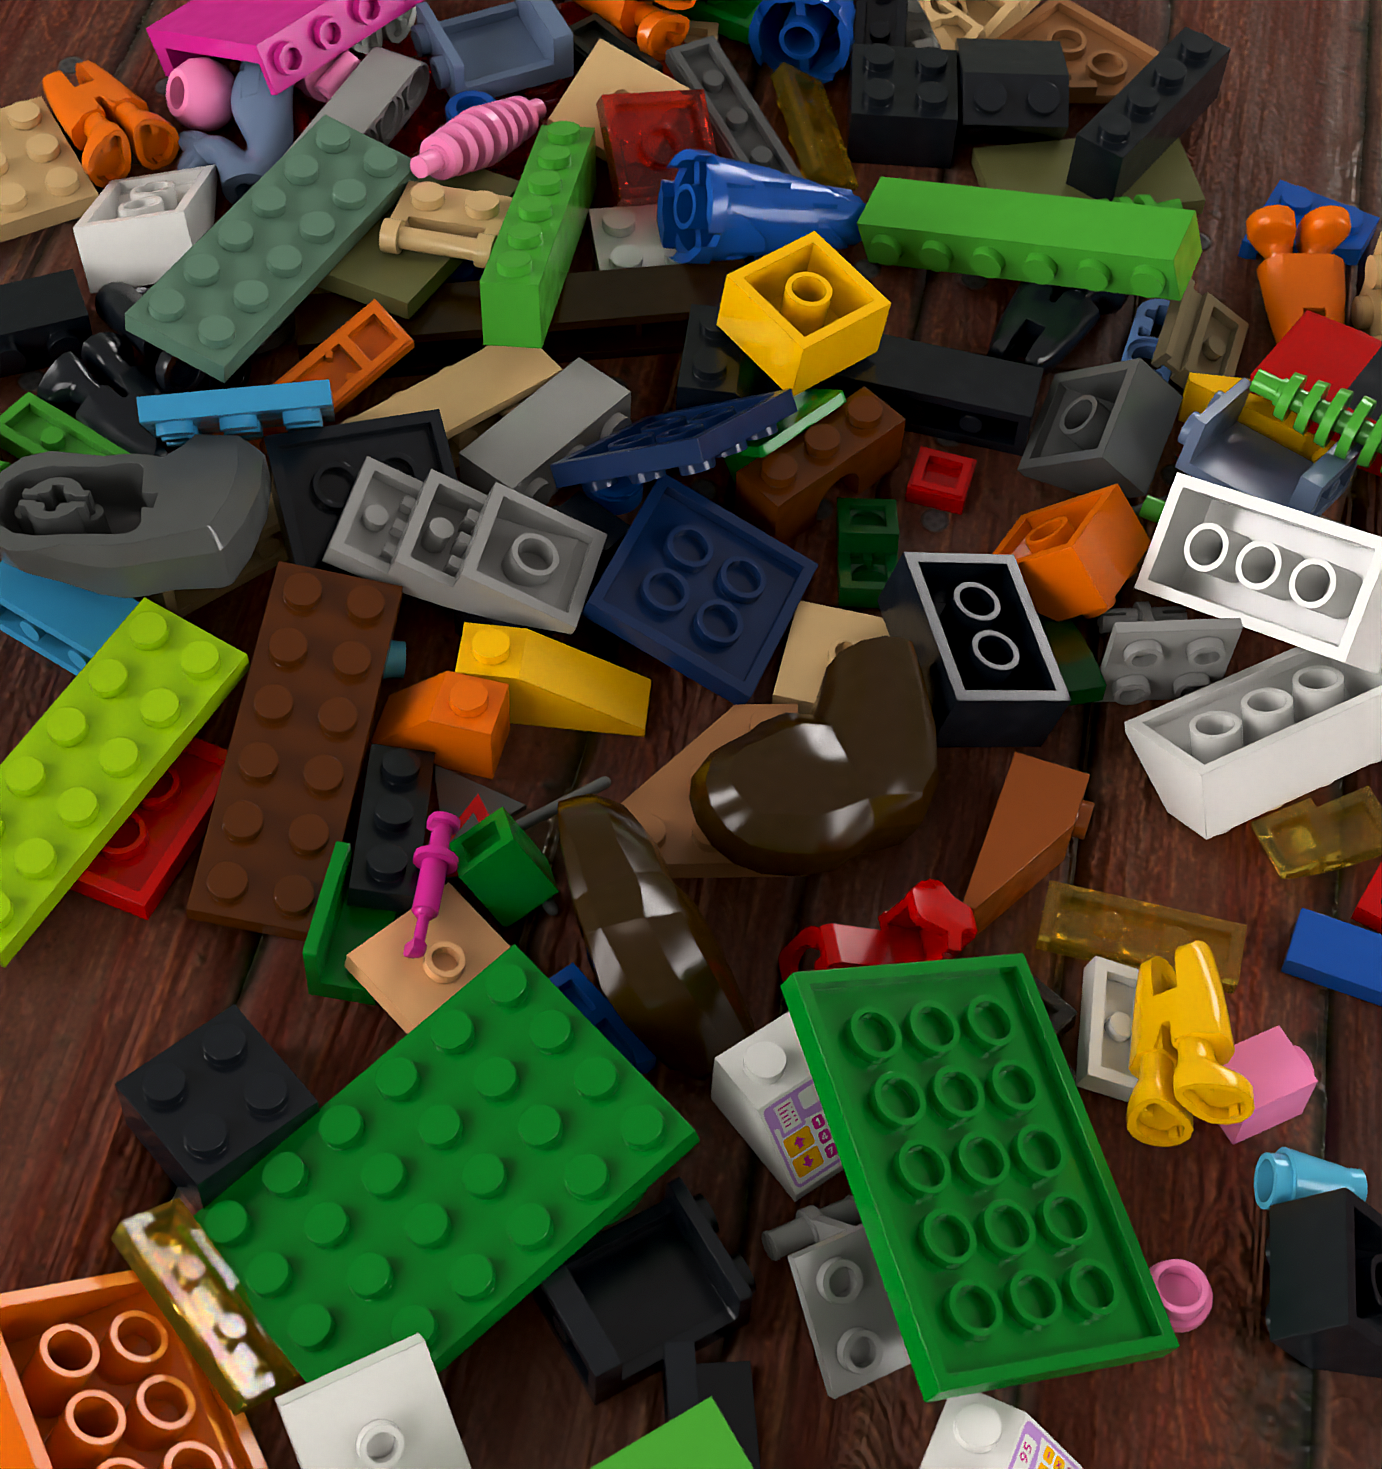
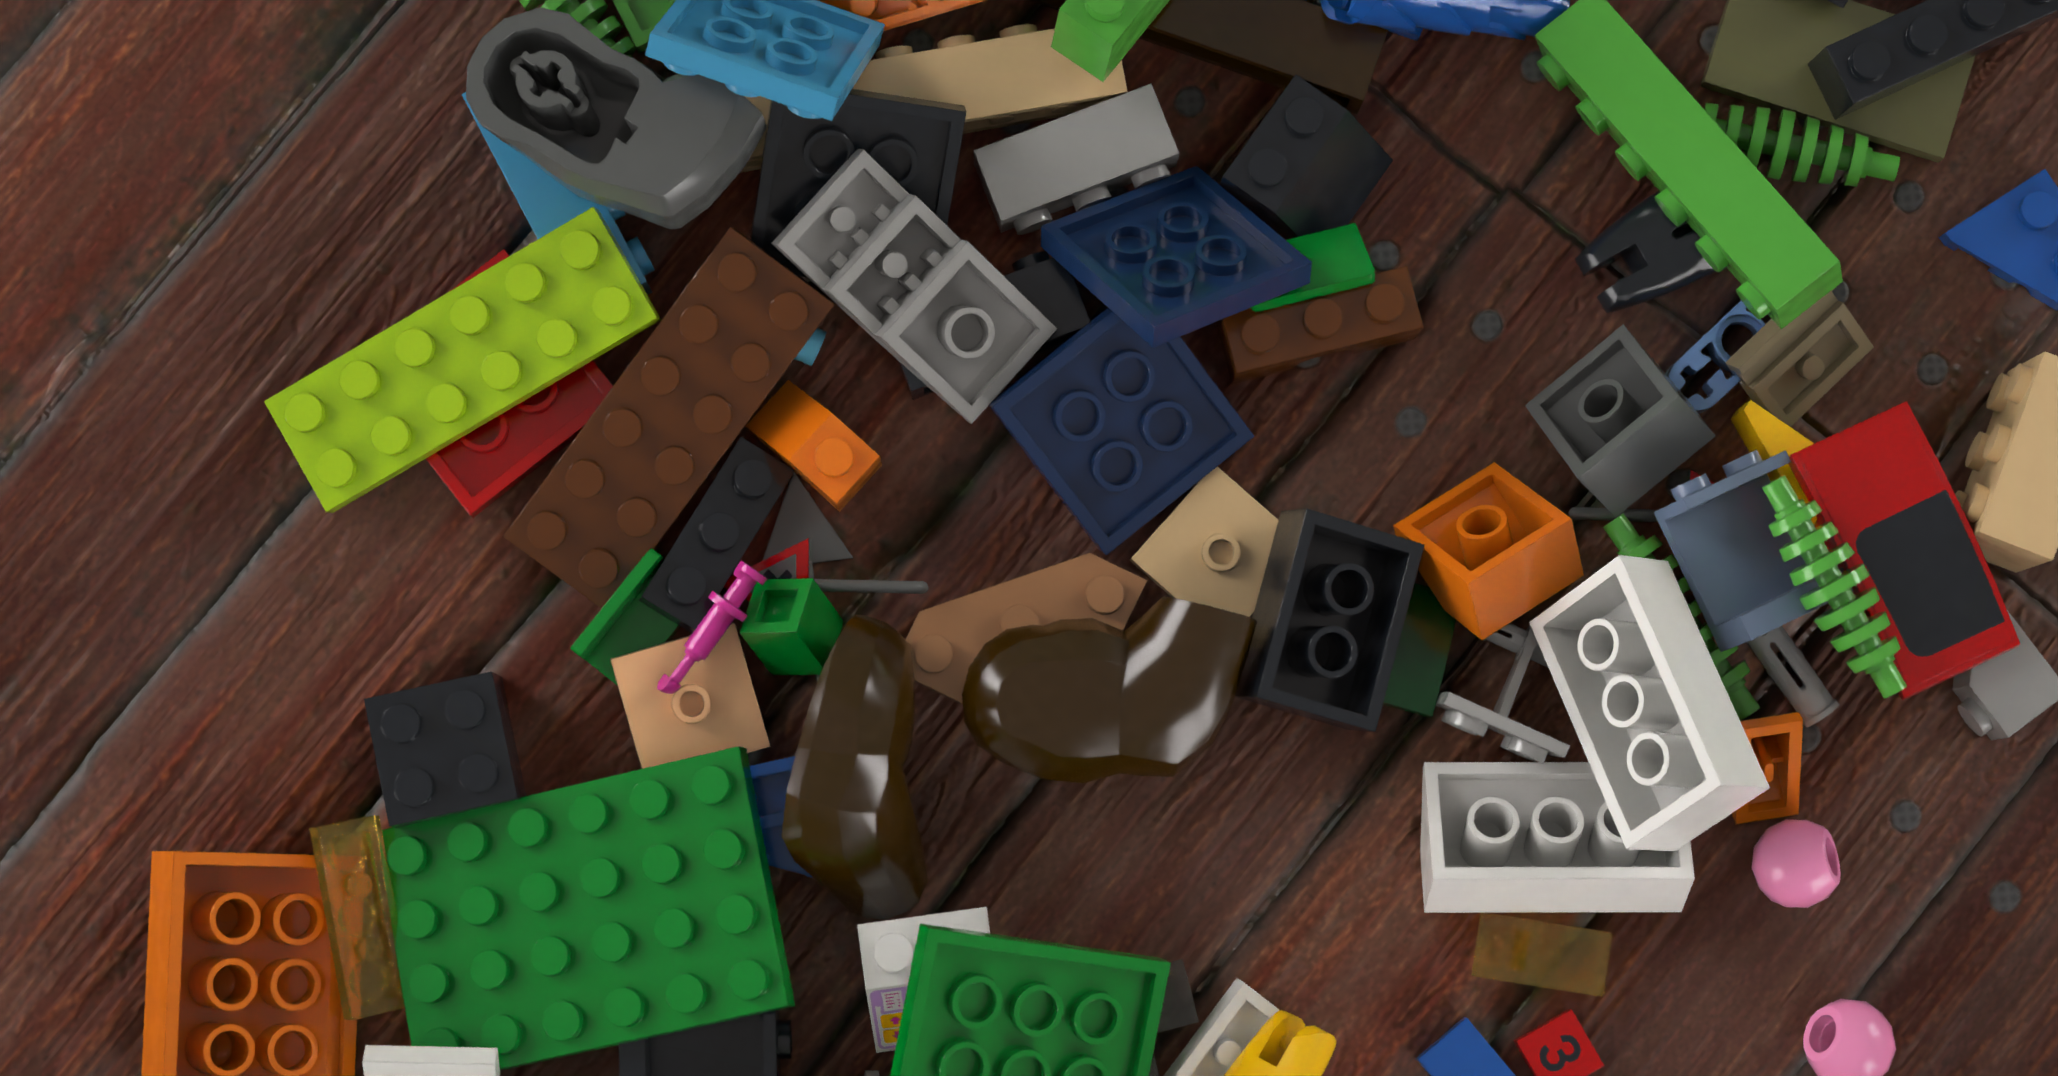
camera: 25 degrees right, 30 degrees up
(555, 682) = (935, 449): yellow slope -> none
(802, 313) = (1381, 168): yellow brick -> none
(865, 549) = (1316, 436): dark green slope -> none
(919, 928) = (1099, 888): red piece -> none
(941, 480) = (1440, 382): red tile -> none
(949, 392) = (1483, 268): black brick -> none
(1027, 834) = (1271, 822): dark orange slope -> none
(1132, 931) = (1306, 973): clear yellow plate -> none
(1303, 279) = (1956, 339): orange piece -> none

